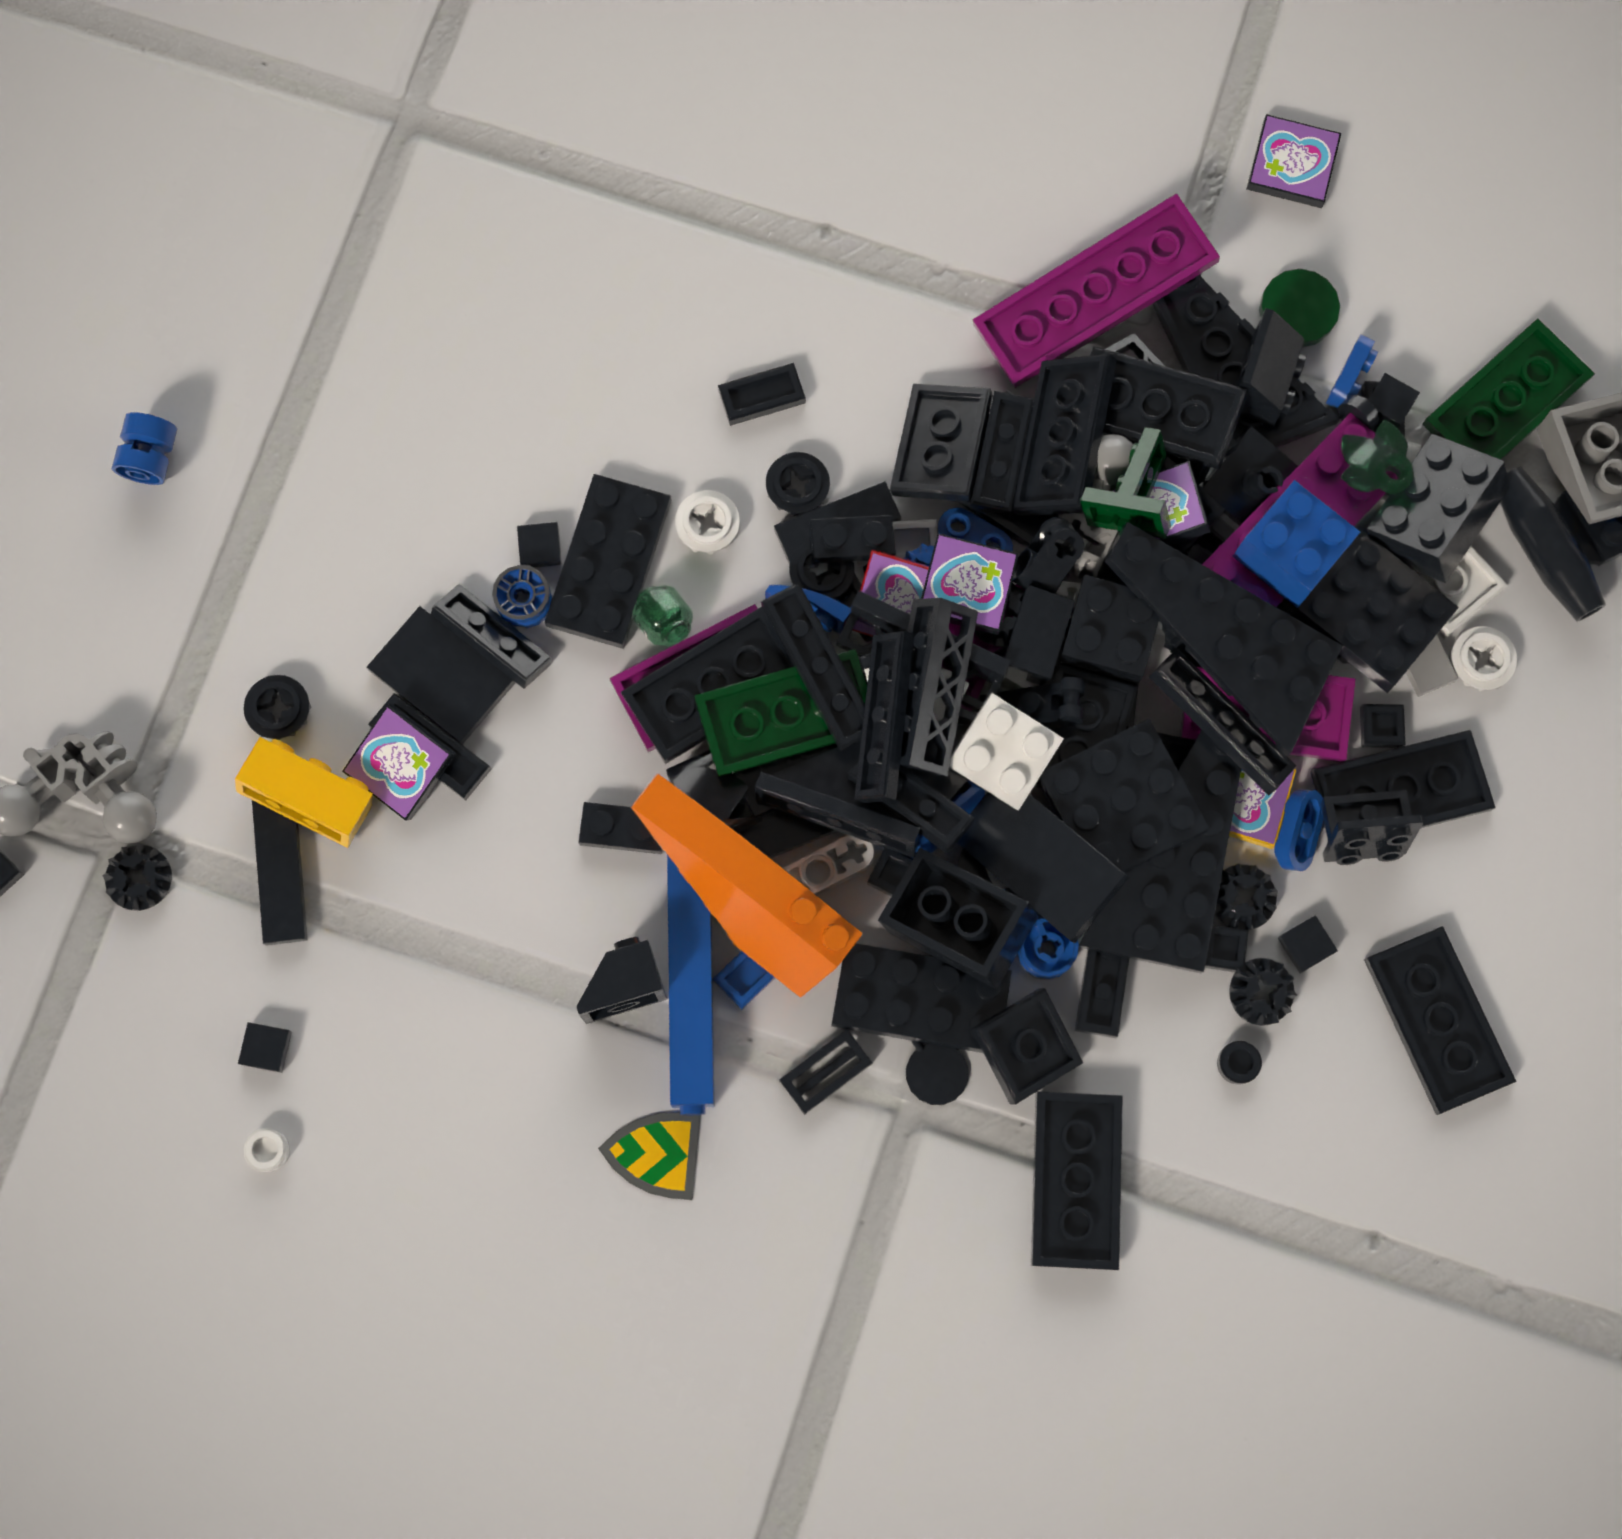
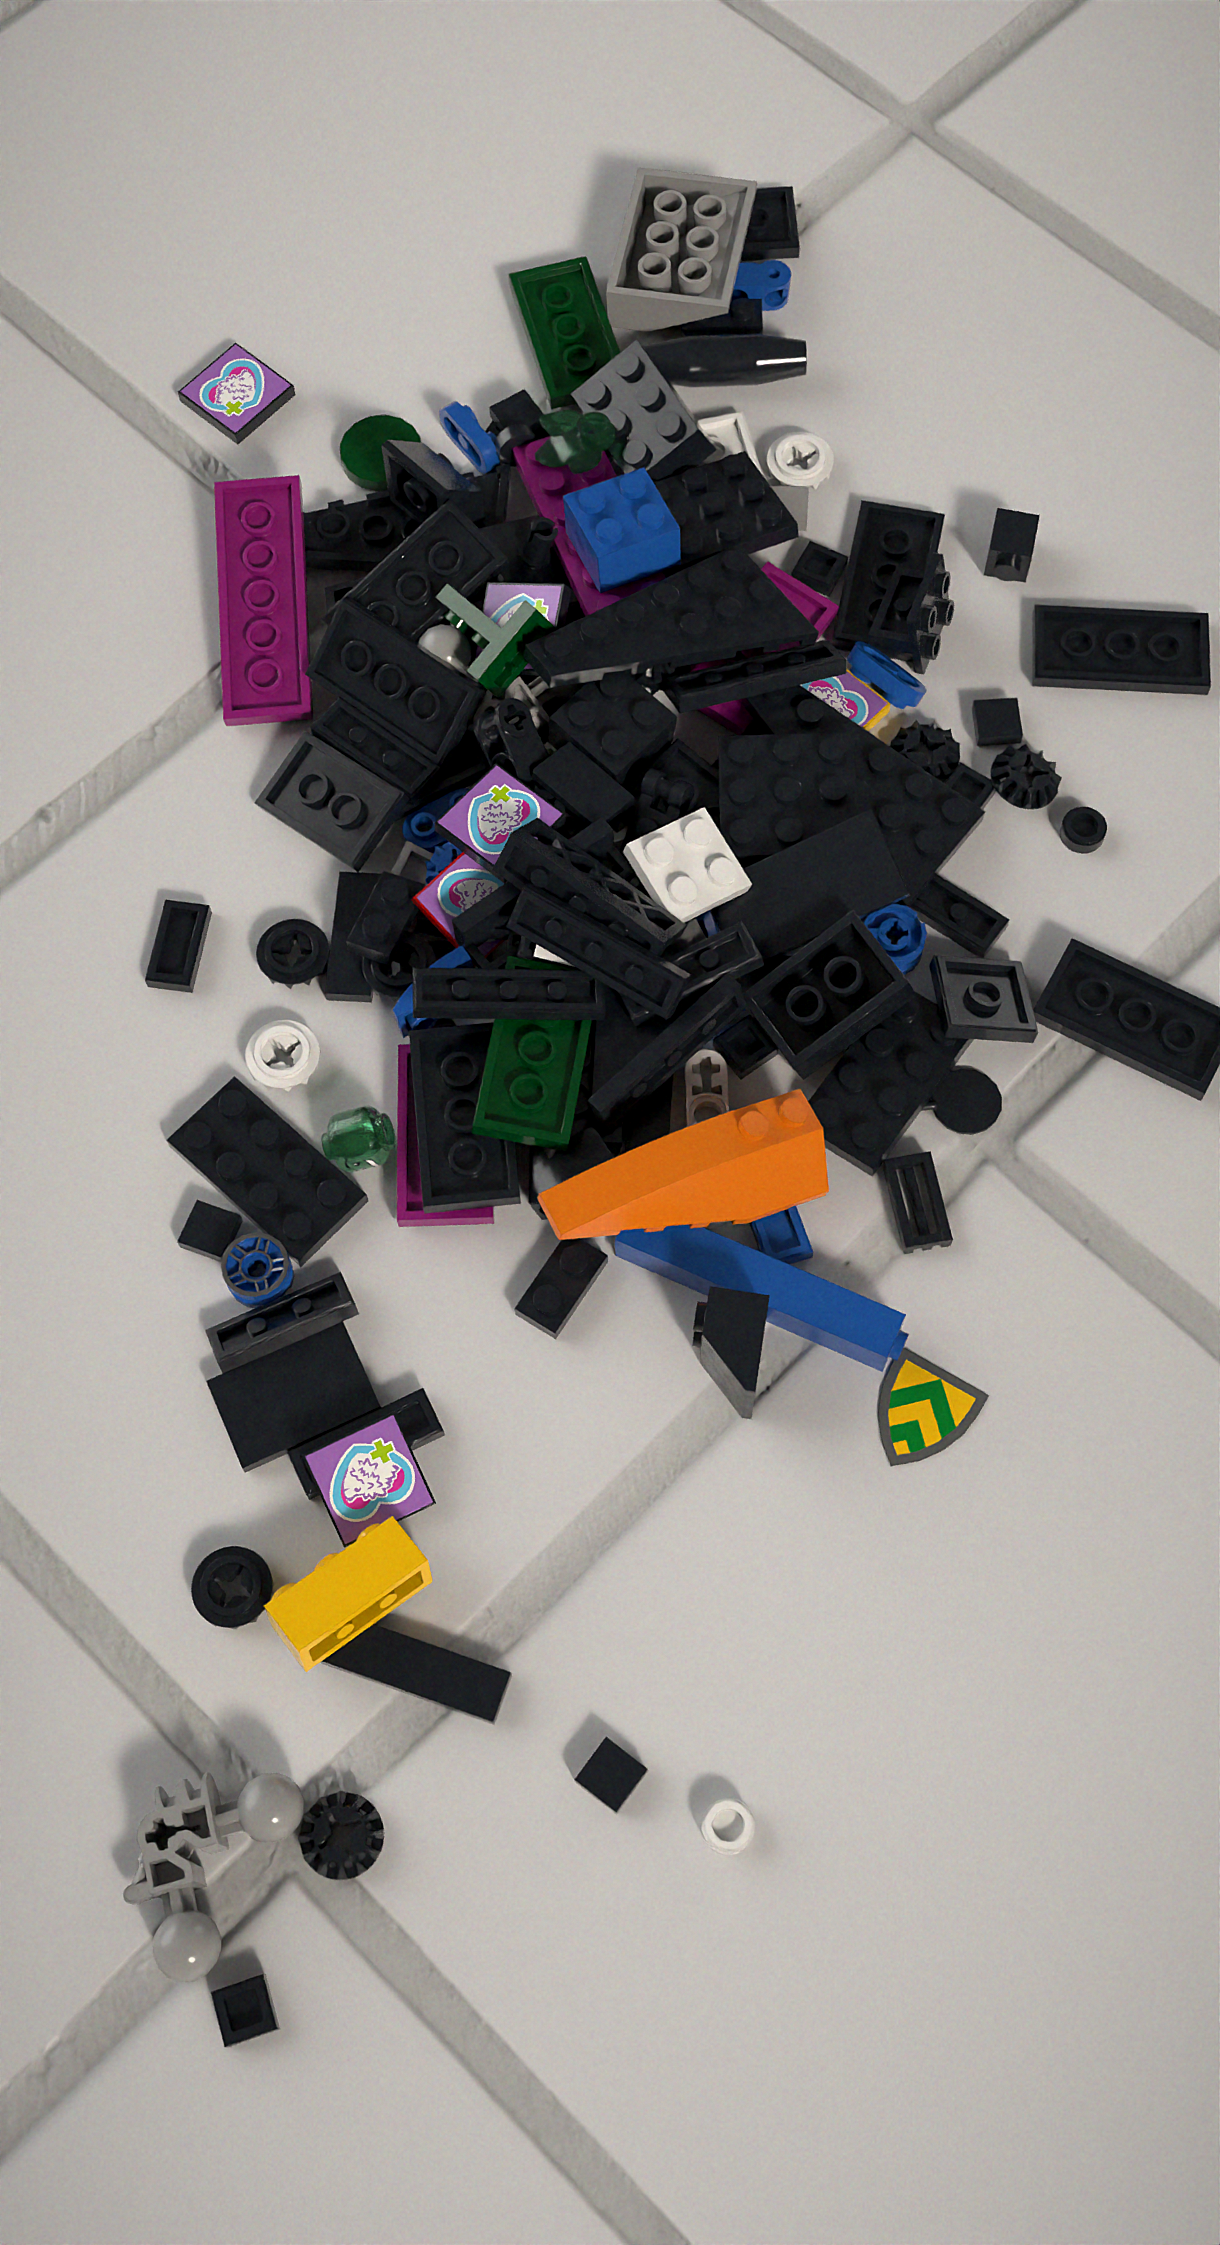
camera: 60 degrees left, 10 degrees down
(1490, 879) = (1011, 545): none -> black brick

